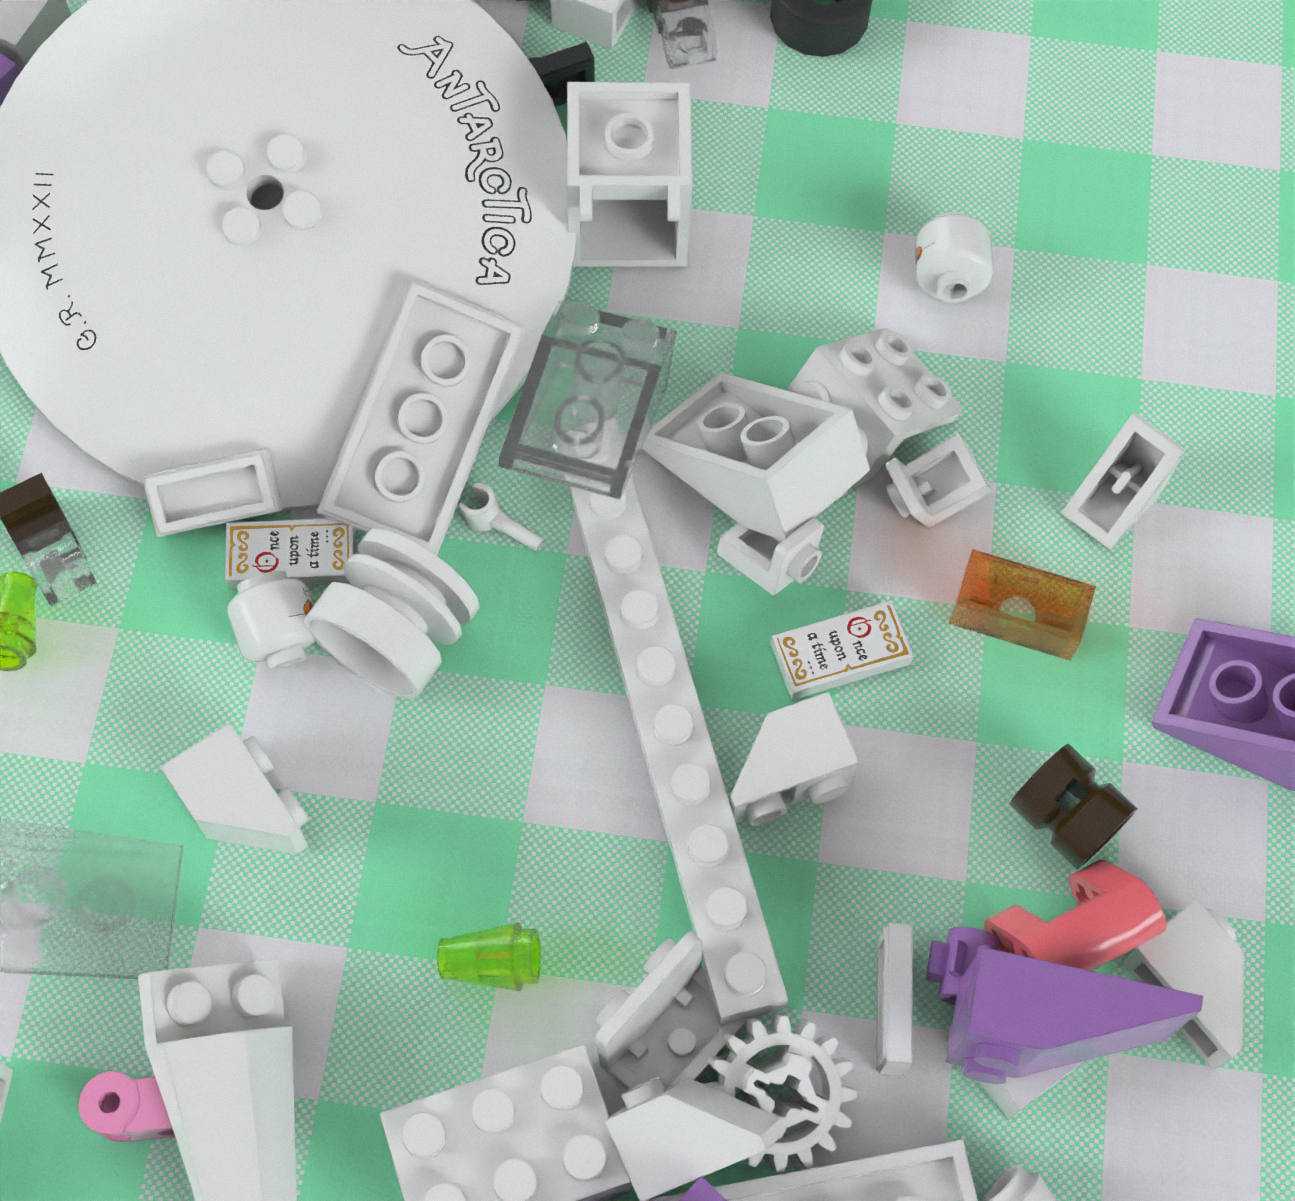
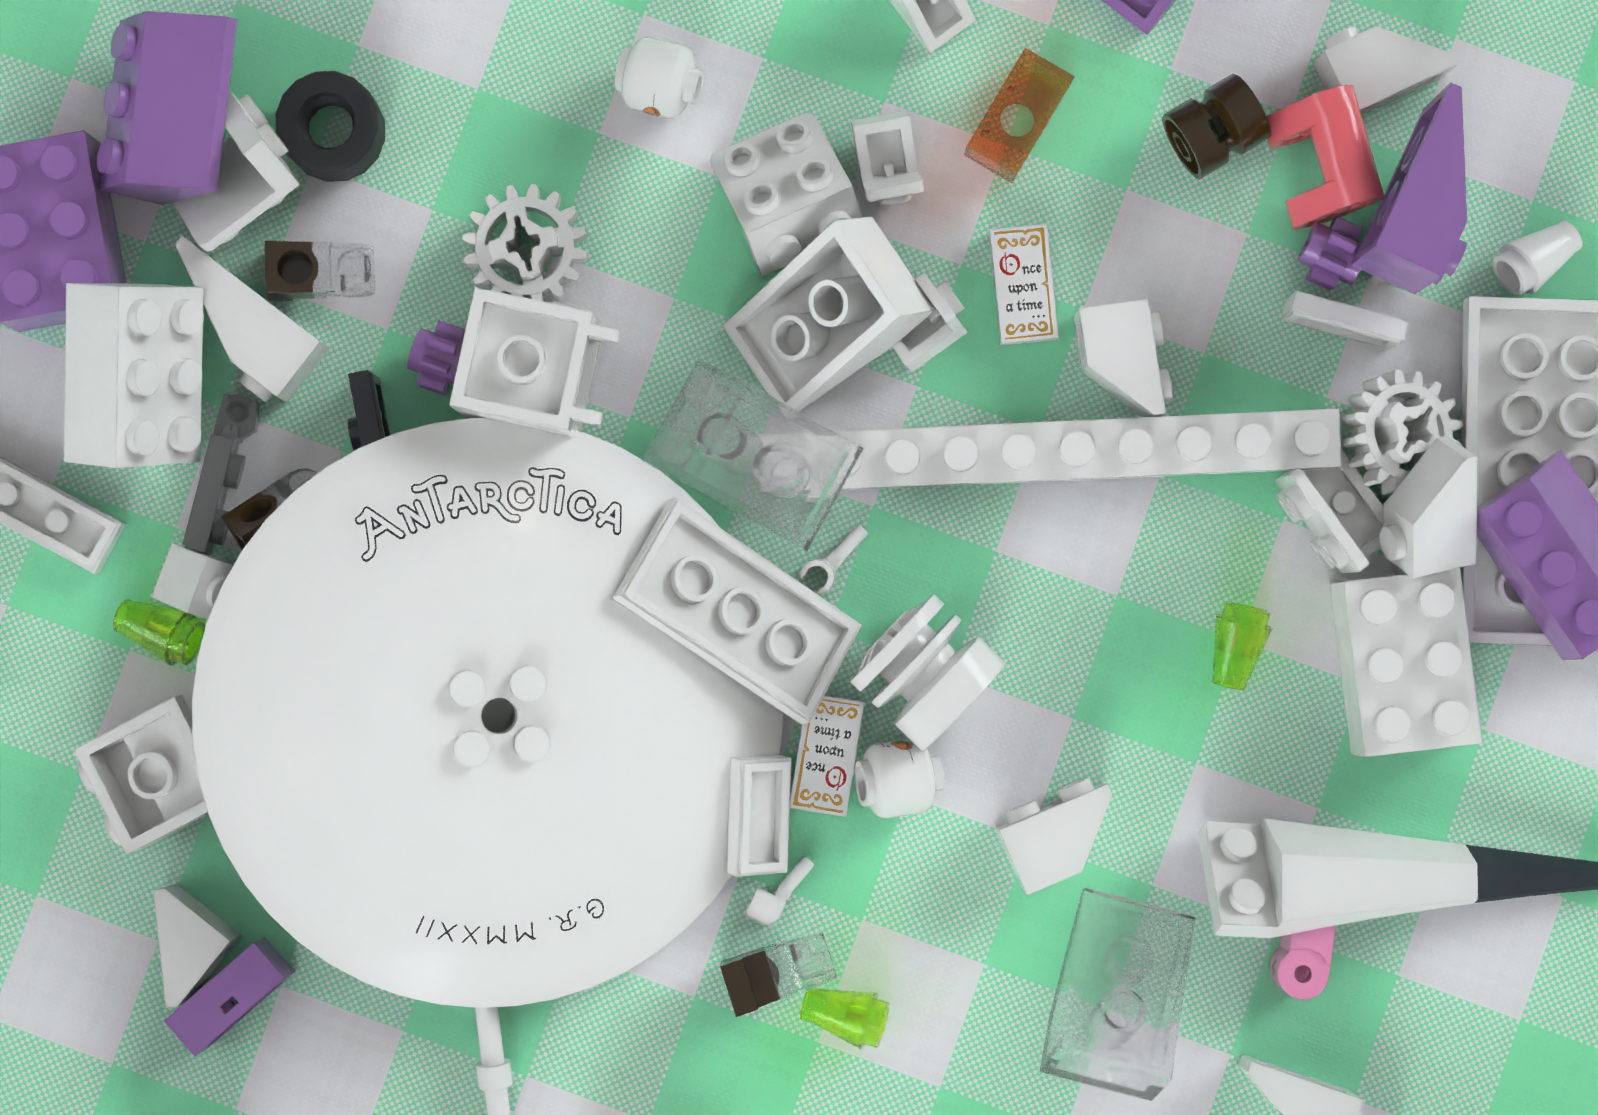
camera: 80 degrees left, 20 degrees up
(117, 530) = (766, 907): none -> white hand
(750, 178) = (552, 243): none -> white gear

